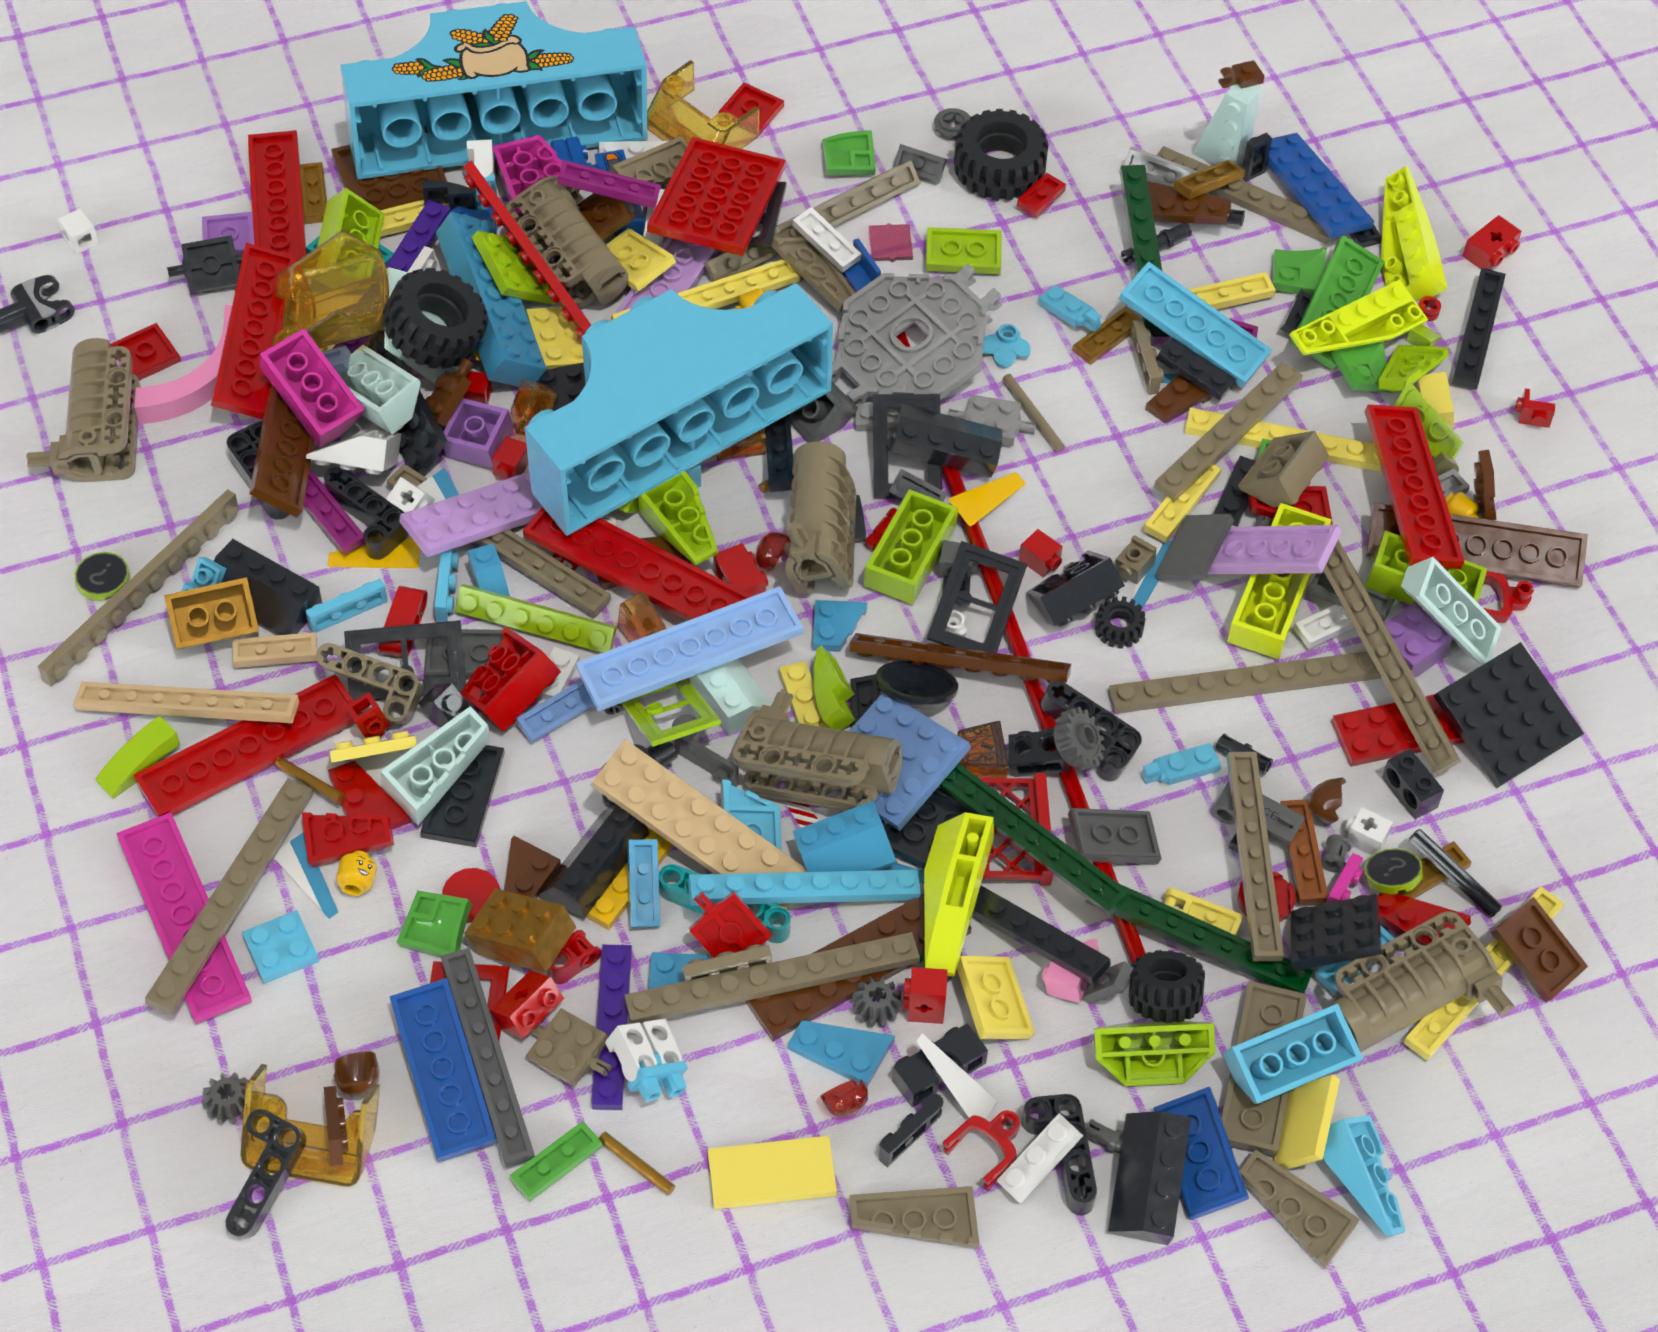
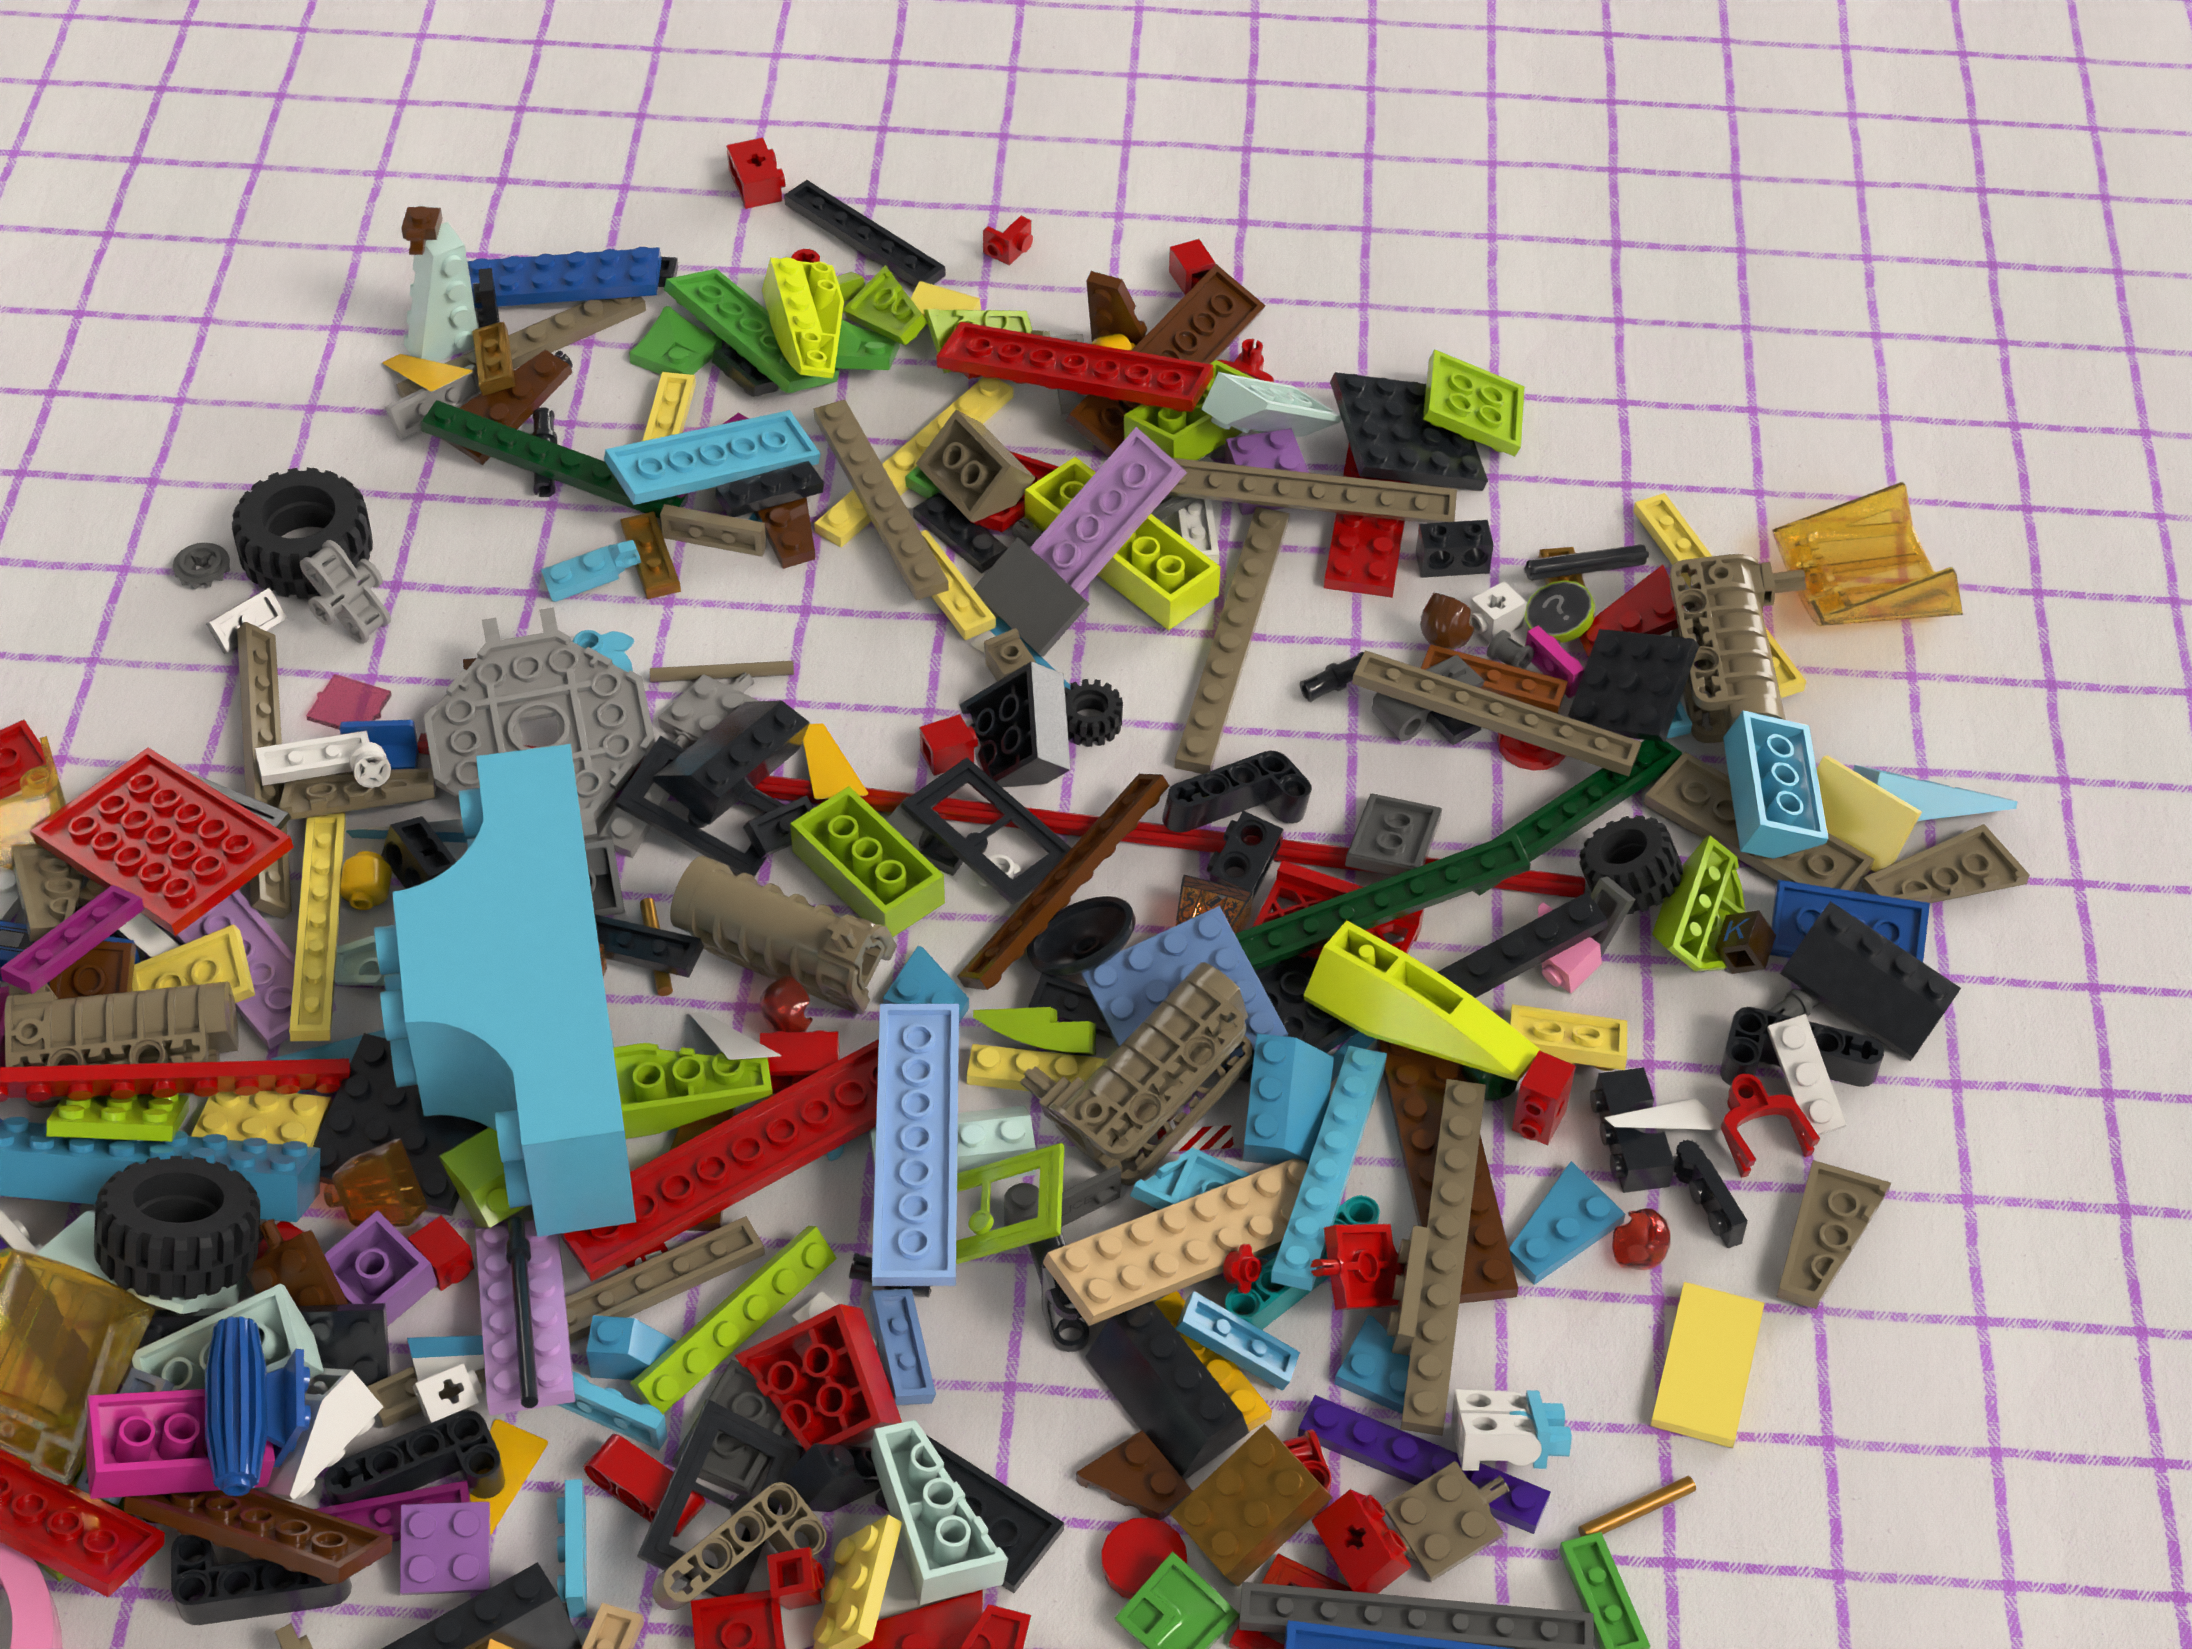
camera: 65 degrees left, 5 degrees down
(318, 545) = (445, 1548): none -> medium lavender plate
(337, 402) = (250, 1405): none -> blue plate
(516, 489) = (518, 1255): none -> black bar
(638, 618) = (827, 1195): clear orange torso -> none
(689, 854) = (1242, 1268): none -> red plate
(728, 531) = (730, 1041): none -> white sticker
(833, 266) = (366, 773): none -> white wheel
(849, 153) = (173, 686): bright green plate -> none
(873, 539) = (810, 884): red axle -> none
(873, 991) = (1518, 1159): dark grey gear -> none
(955, 247) = (422, 635): lime plate -> none
(963, 184) = (338, 582): none -> light grey axle
(1041, 195) = (390, 527): red plate -> none
(1078, 739) = (1266, 800): dark grey gear -> none
(1146, 1085) = (1745, 942): none -> dark brown brick
(1179, 153) = (424, 372): none -> yellow sticker
(1182, 765) = (1320, 738): medium azure hinge -> none
(1204, 910) = (1531, 798): light yellow plate -> none
(1409, 240) = (700, 234): neon yellow wedge -> none
(1539, 949) = (1716, 531): reddish brown plate -> none
(1565, 745) = (1474, 403): none -> lime plate
(1576, 1064) = (1866, 563): none -> clear yellow windscreen
(1590, 521) = (1189, 264): none -> red brick

